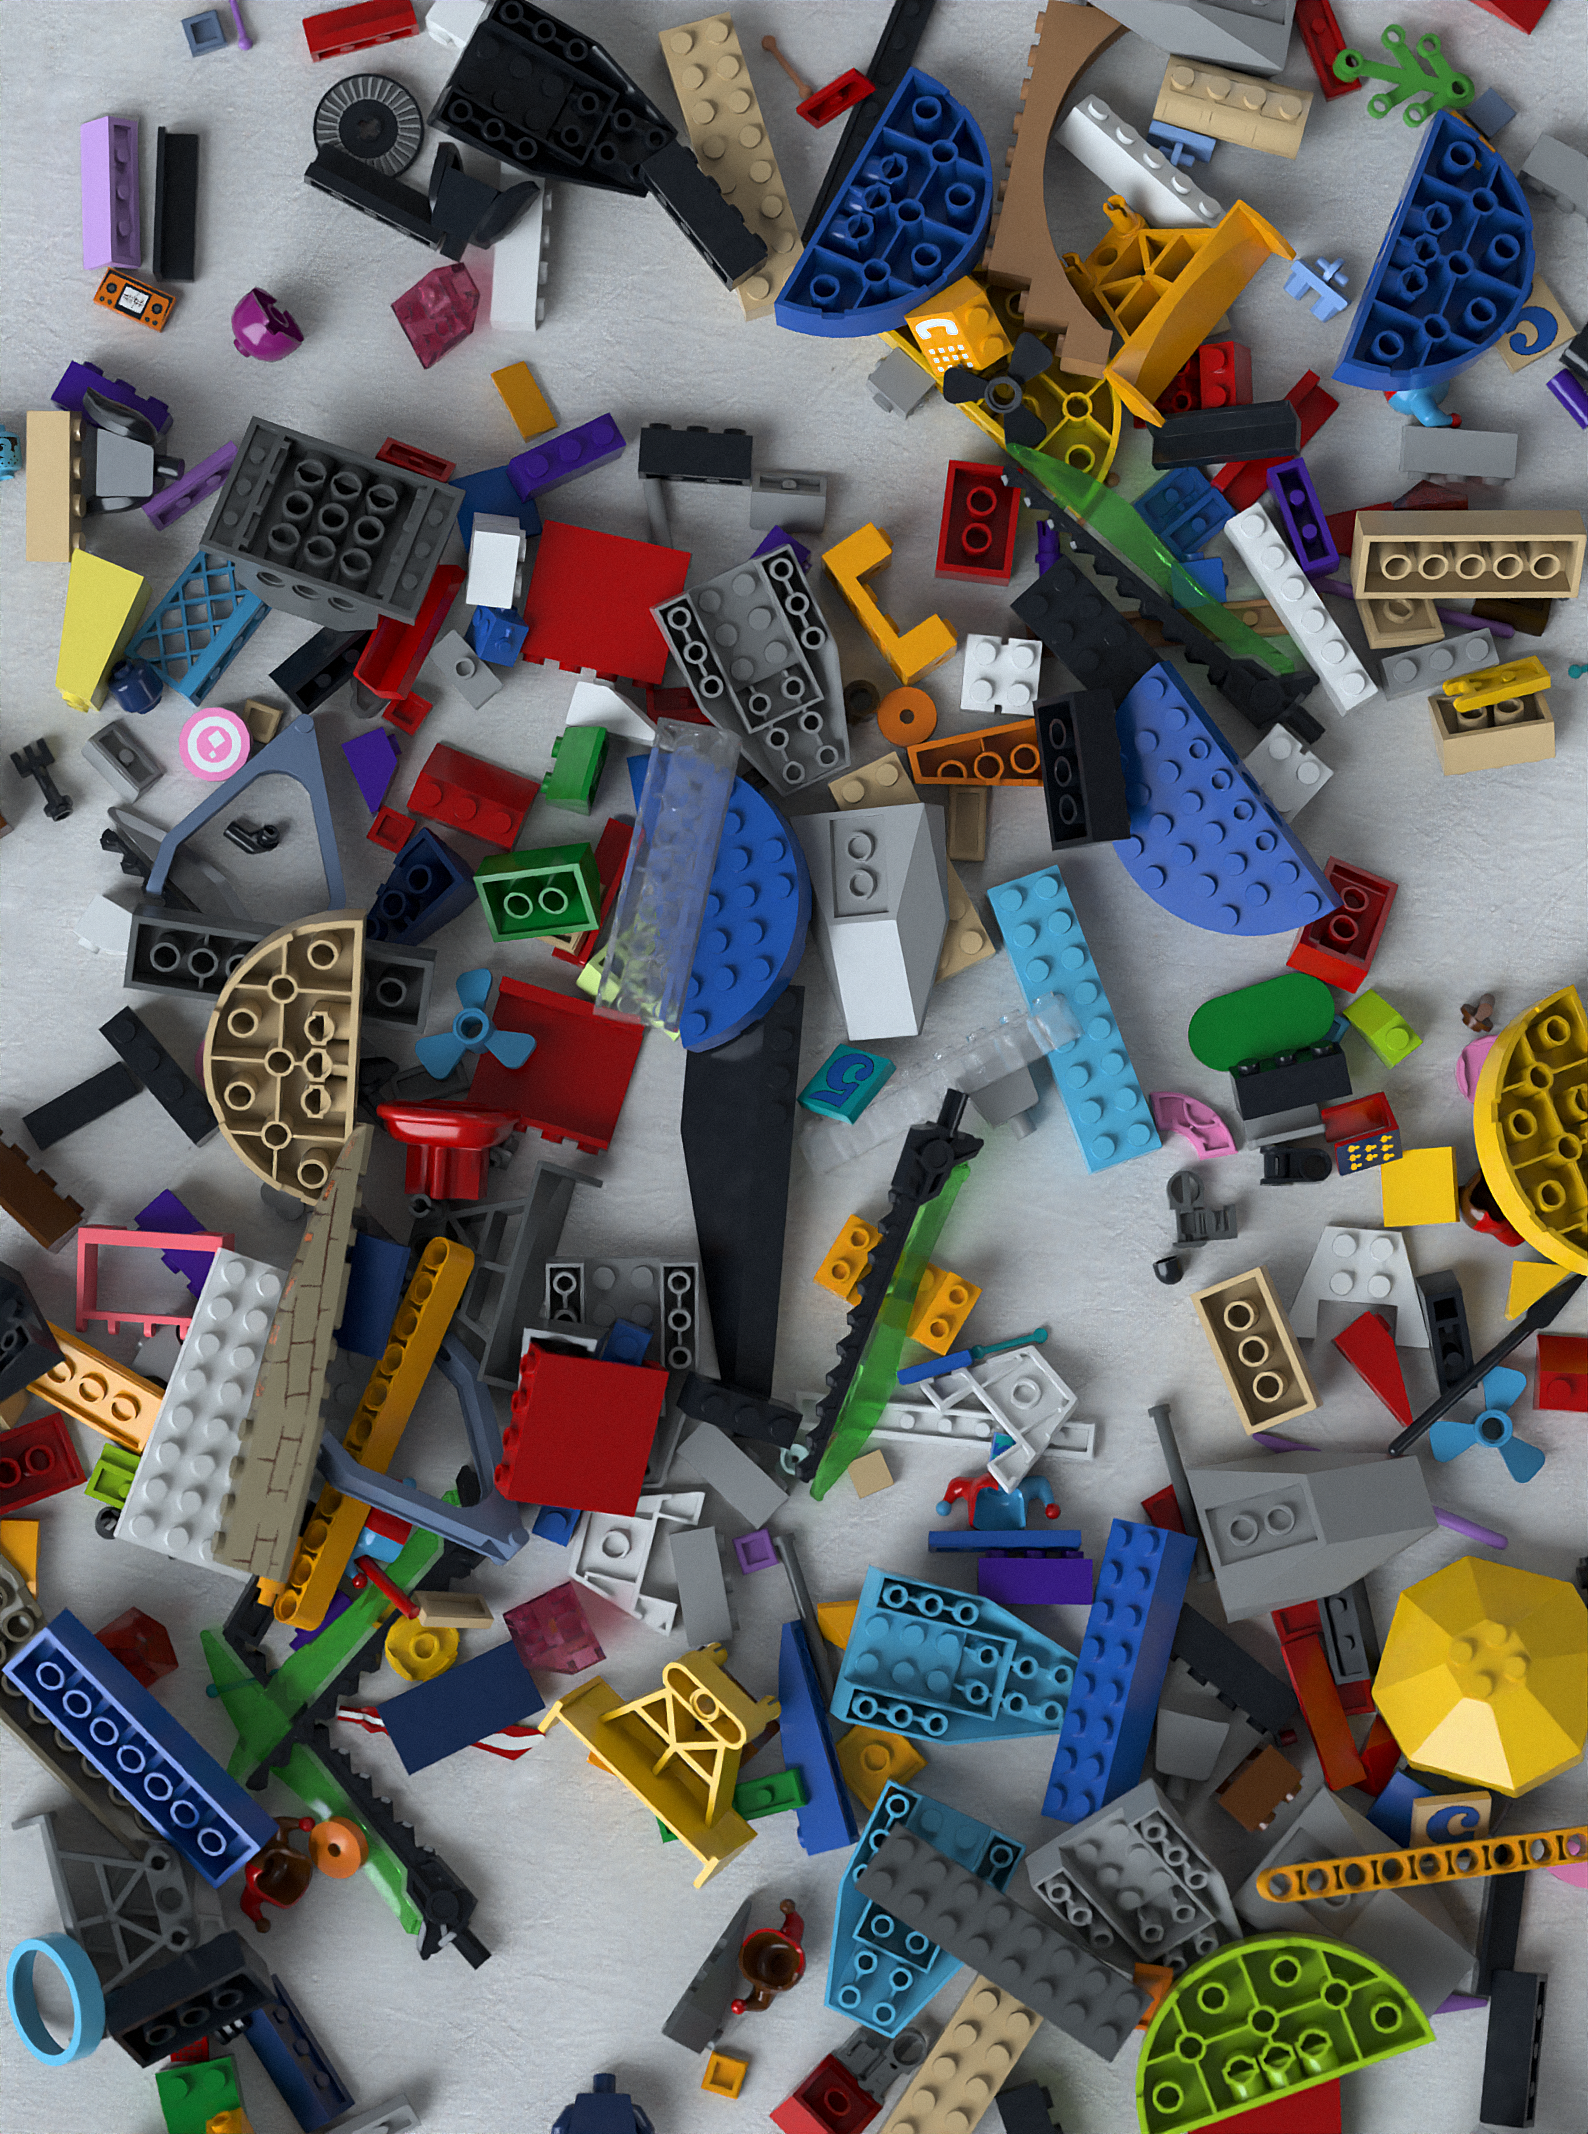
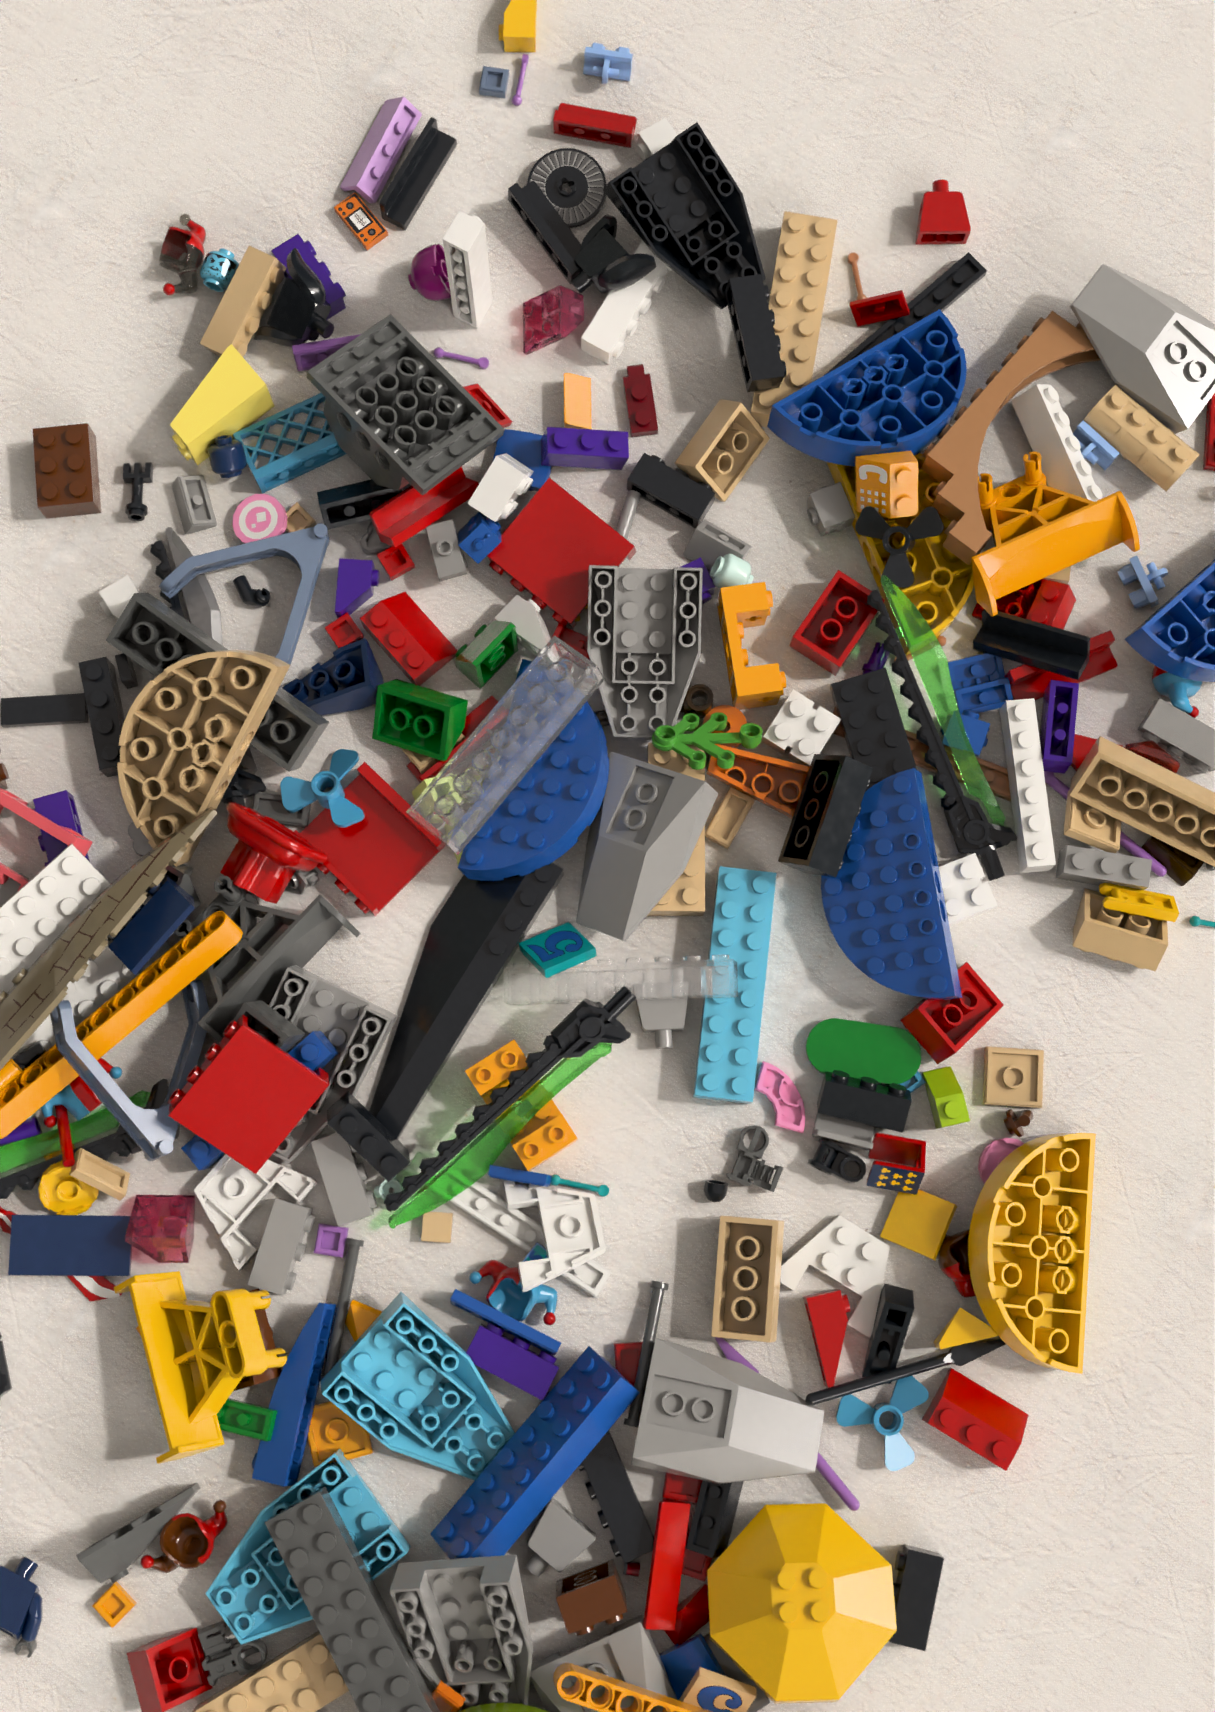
camera: 25 degrees right, 5 degrees down
(155, 1009) = (126, 671): none -> black tile
(322, 315) = (468, 268): none -> white brick
(380, 407) = (483, 362): none -> medium lavender hinge
(599, 360) = (640, 402): none -> dark red hinge
(732, 372) = (723, 448): none -> tan slope
(822, 526) = (731, 571): none -> light aqua head
(853, 767) = (672, 738): none -> bright green plant
(1449, 964) = (1013, 1077): none -> tan tile

